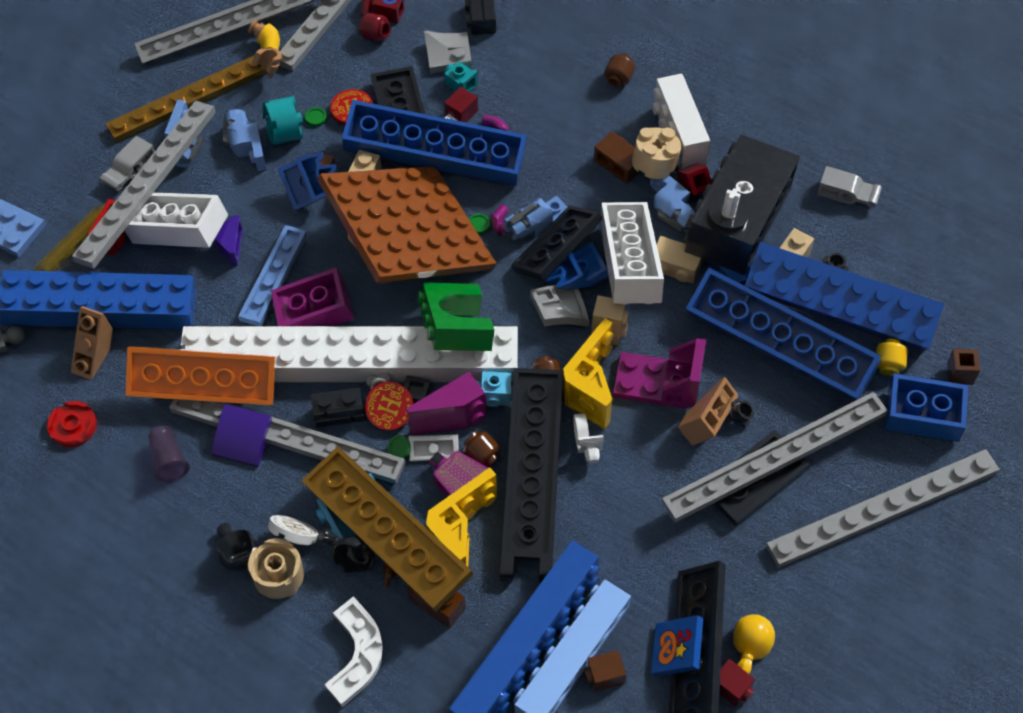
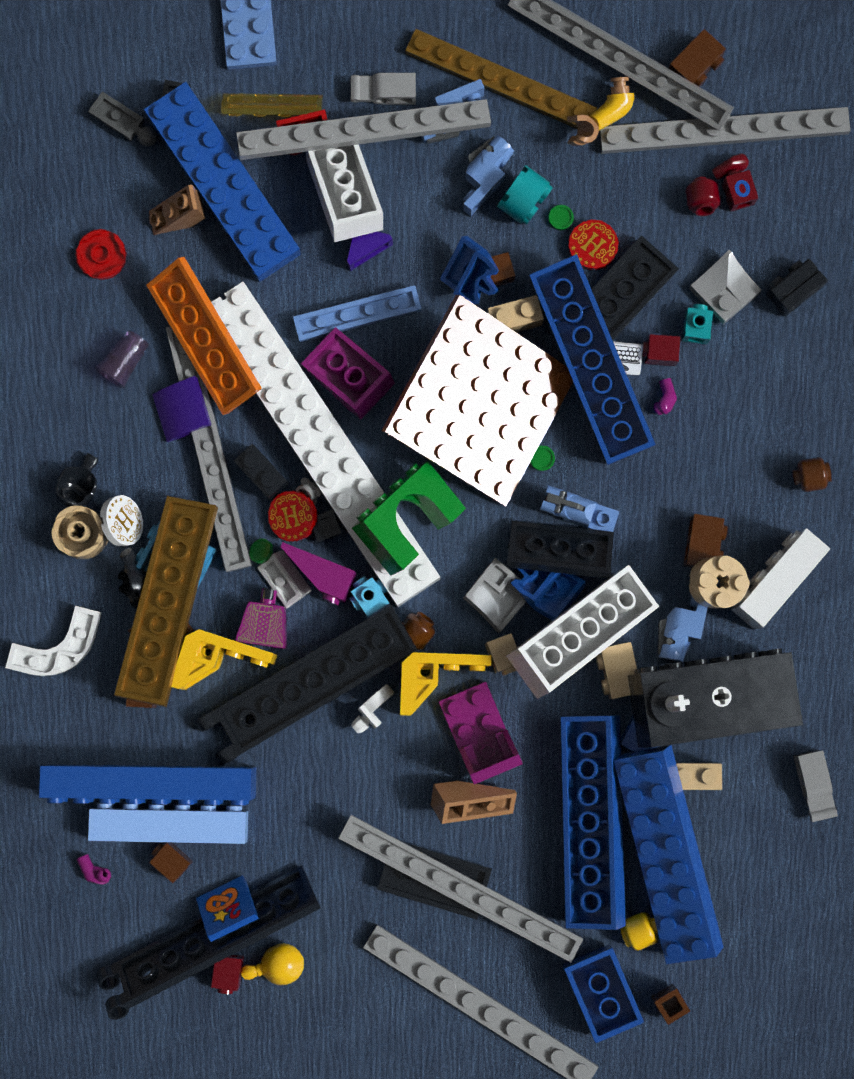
camera: 55 degrees right, 25 degrees up
(481, 448) = (304, 624): reddish brown head -> none
(497, 219) = (555, 474): magenta arm -> none
(694, 178) = (722, 632): dark red brick -> none
(741, 412) = (495, 833): black plate -> none
(837, 259) = (724, 820): black plate -> none

